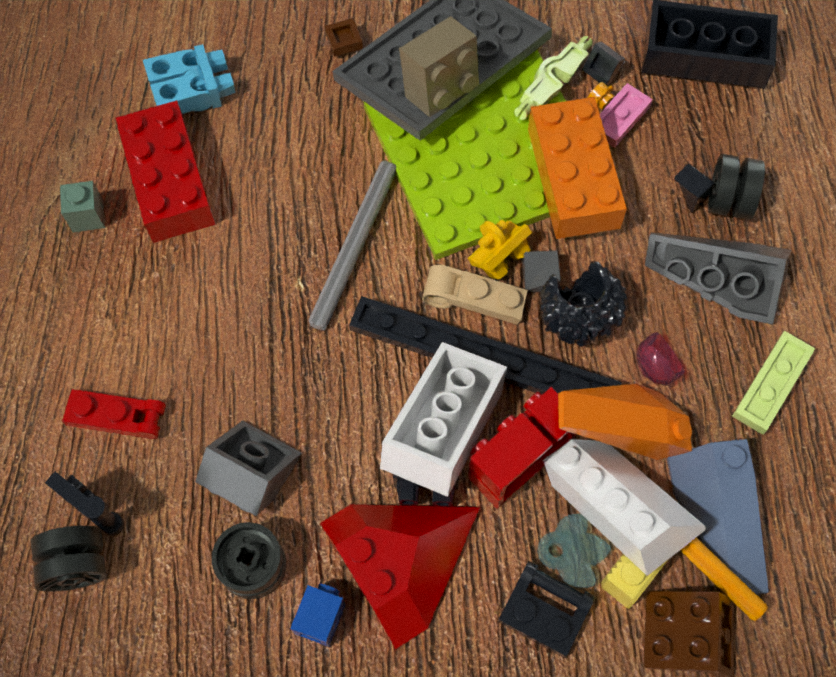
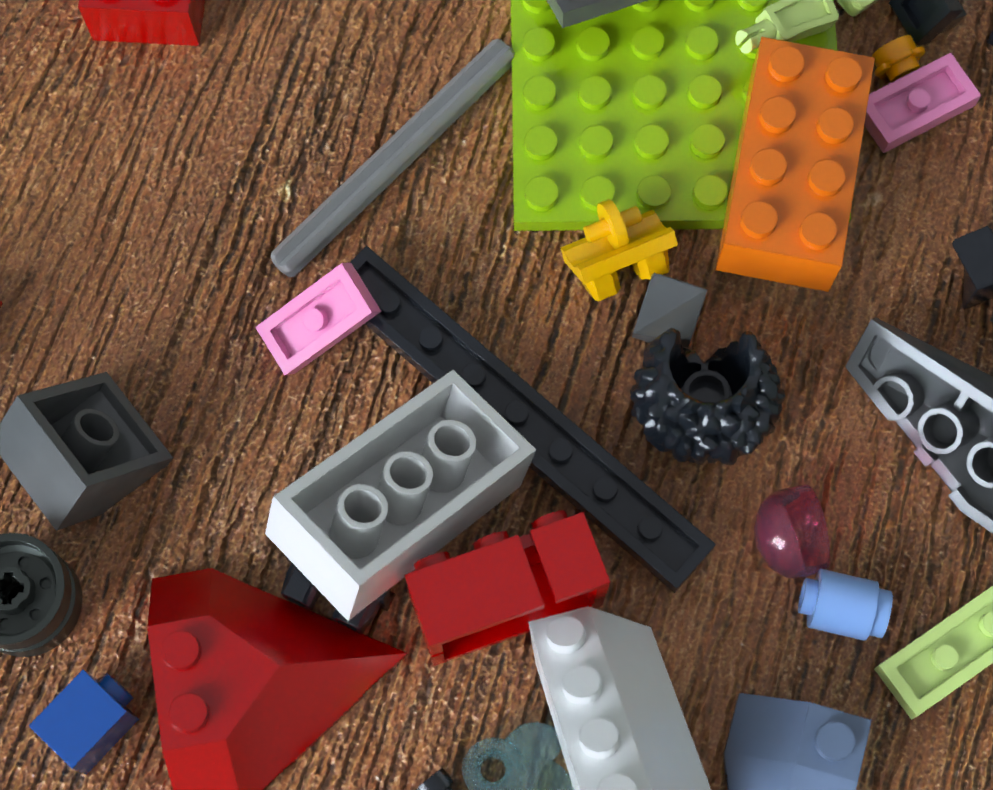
camera: 20 degrees right, 5 degrees up
(352, 344) = (318, 318): none -> bright pink plate
(473, 292) = (547, 309): tan plate -> none
(627, 418) = (689, 605): orange wedge -> none
(703, 387) = (845, 605): none -> light blue brick

